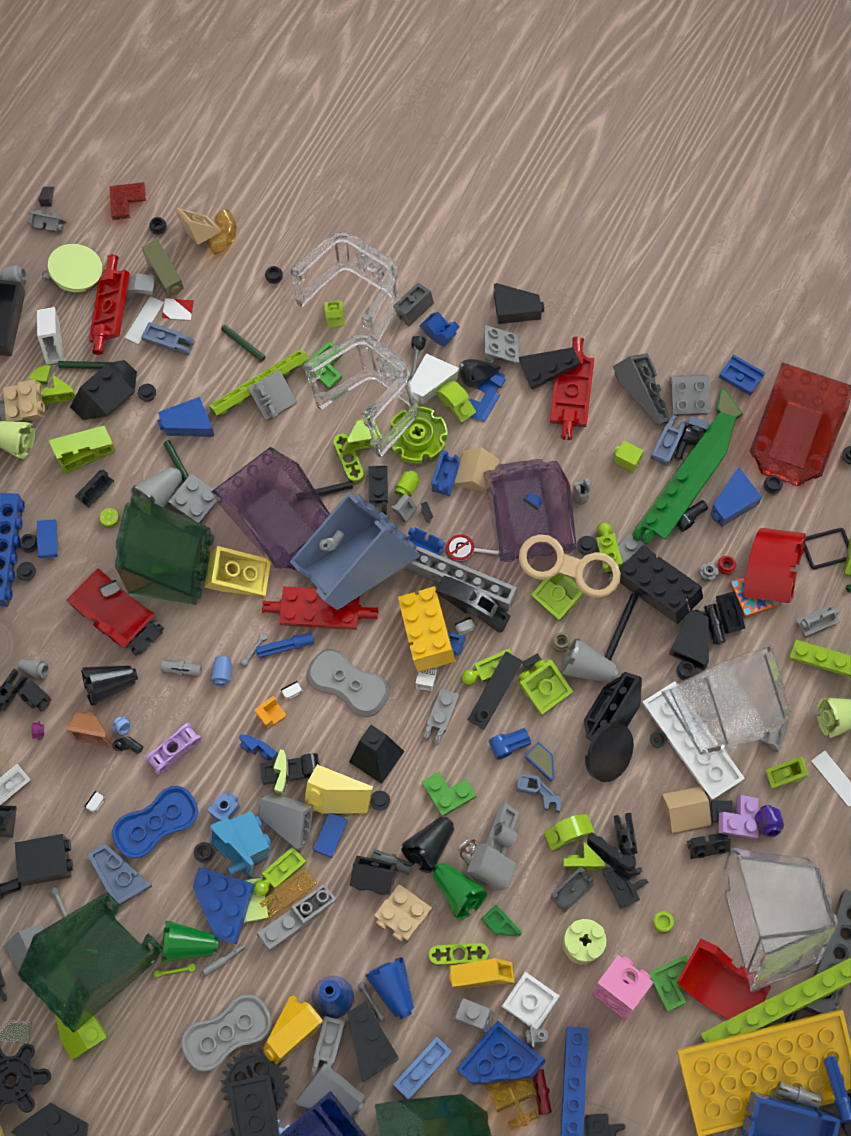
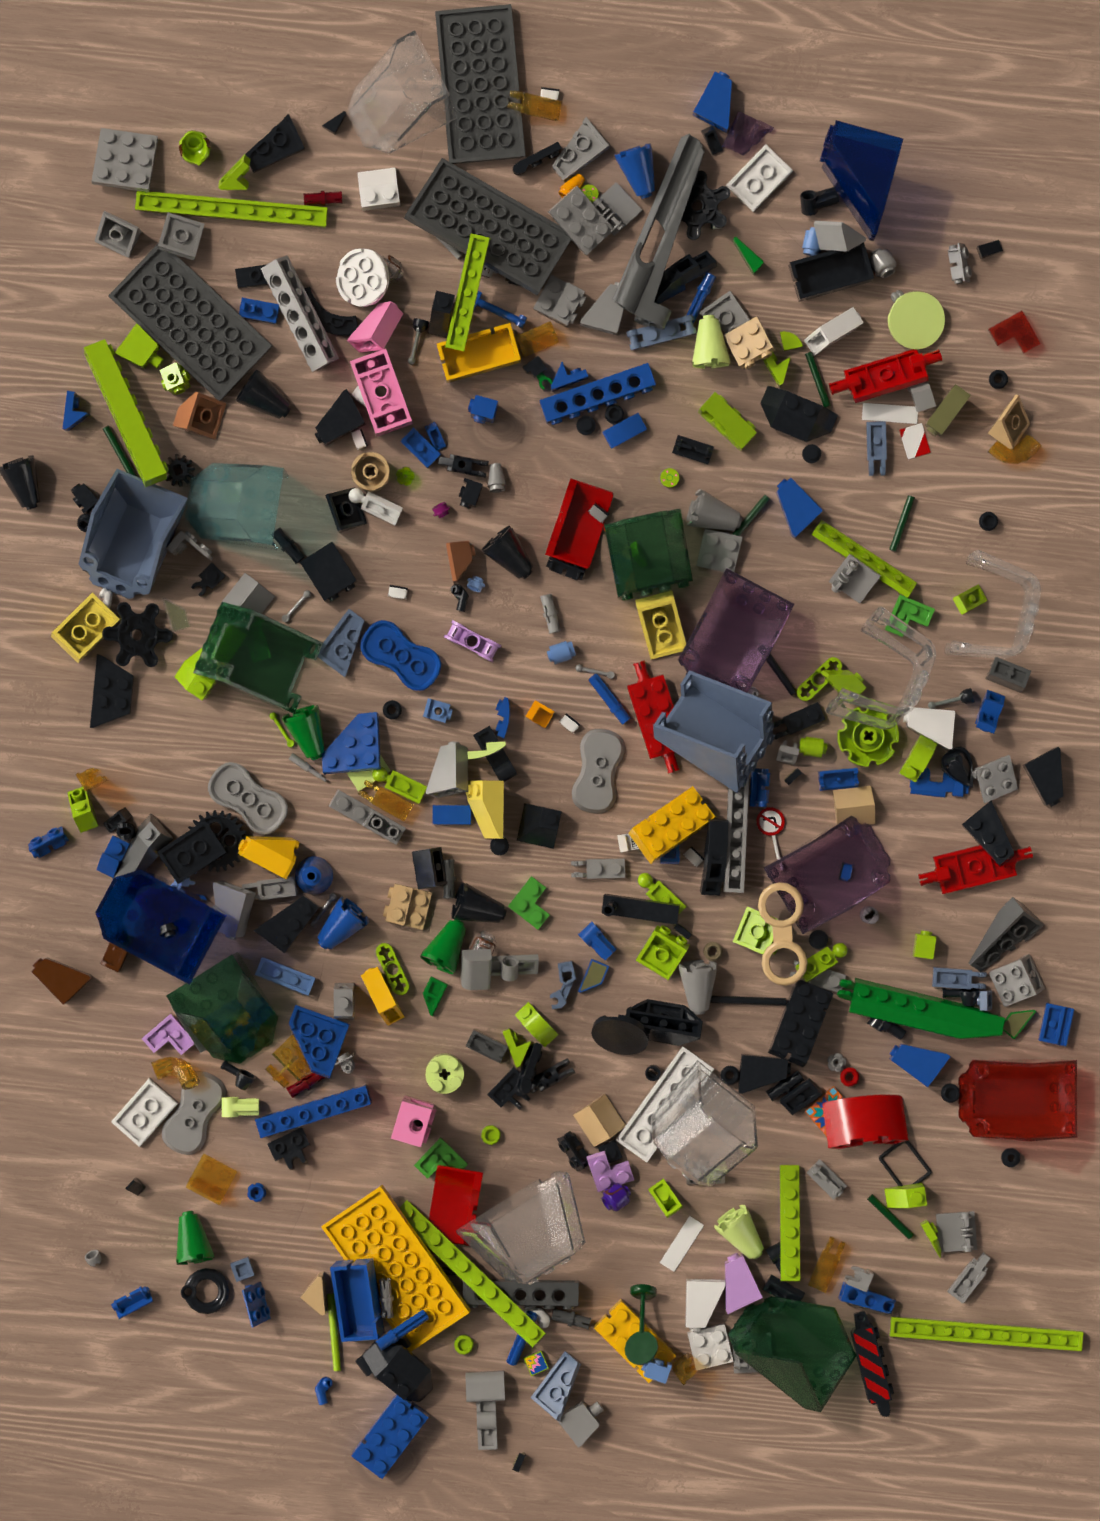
camera: 60 degrees right, 20 degrees up
(241, 842) = (410, 743): dark azure piece -> none
(332, 542) = (722, 703): light grey arm -> none
(530, 1001) = (377, 1045): white tile -> none

